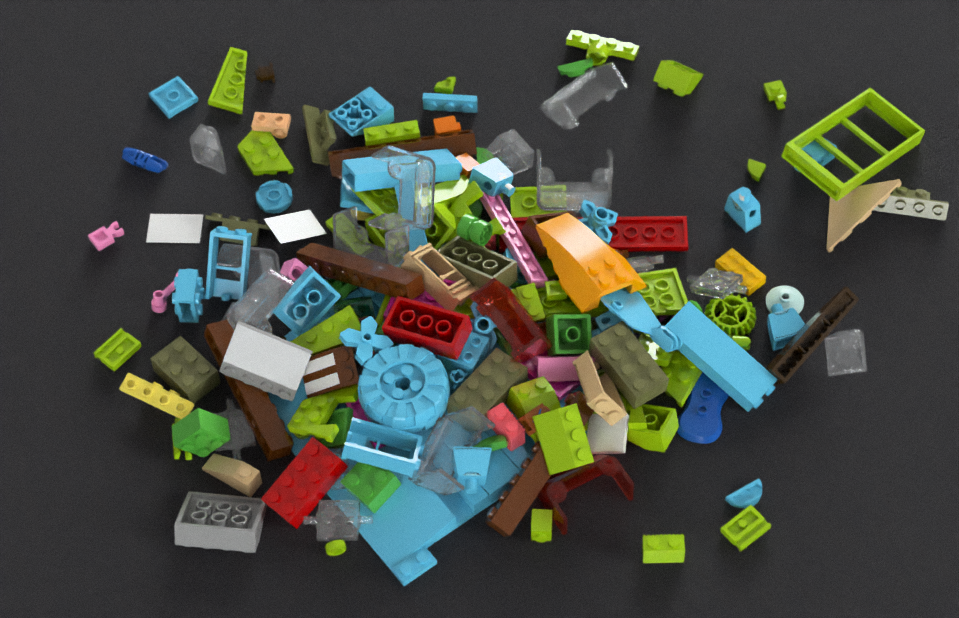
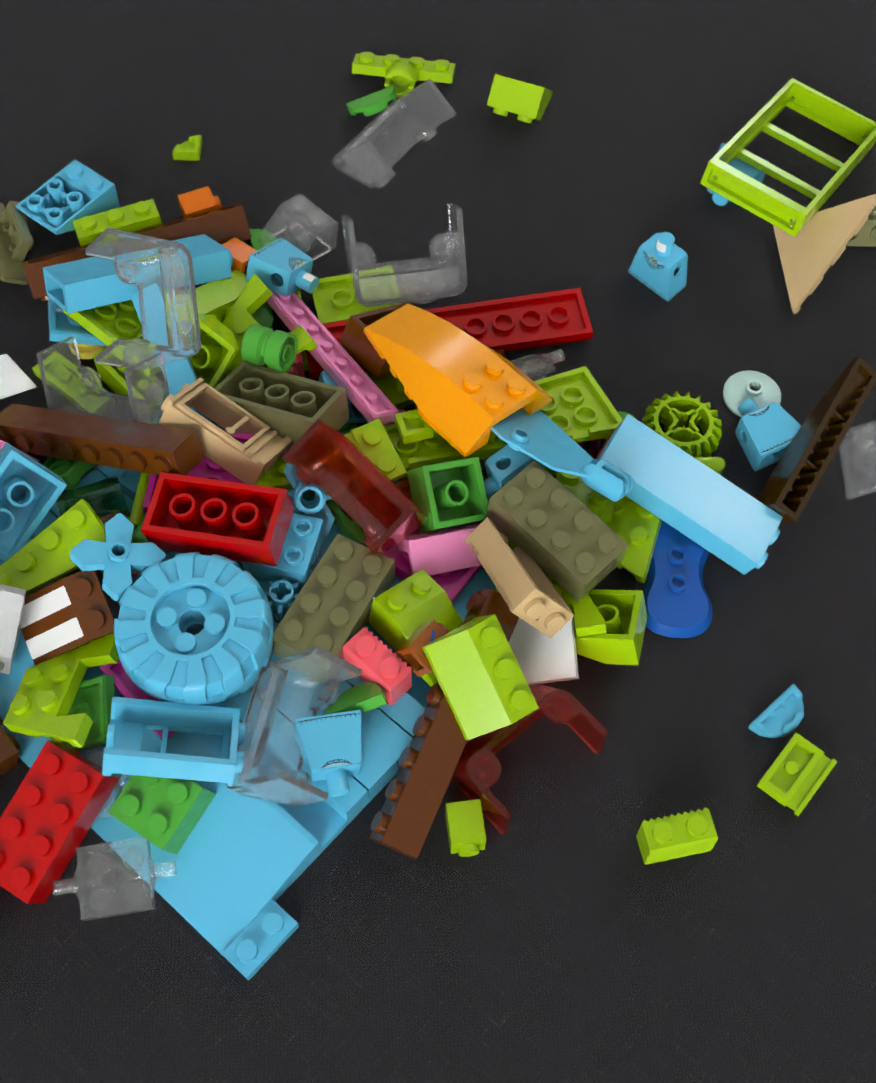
camera: 15 degrees left, 5 degrees up
(335, 547) = (117, 931): lime tile -> none
(450, 102) = (198, 170): medium azure plate -> none
(598, 219) = (453, 306): medium azure plant -> none
(716, 283) = (651, 381): clear plate -> none
(734, 262) = (677, 359): yellow piece -> none
(756, 169) = (659, 209): lime tile -> none
(776, 92) = (659, 102): lime plate -> none

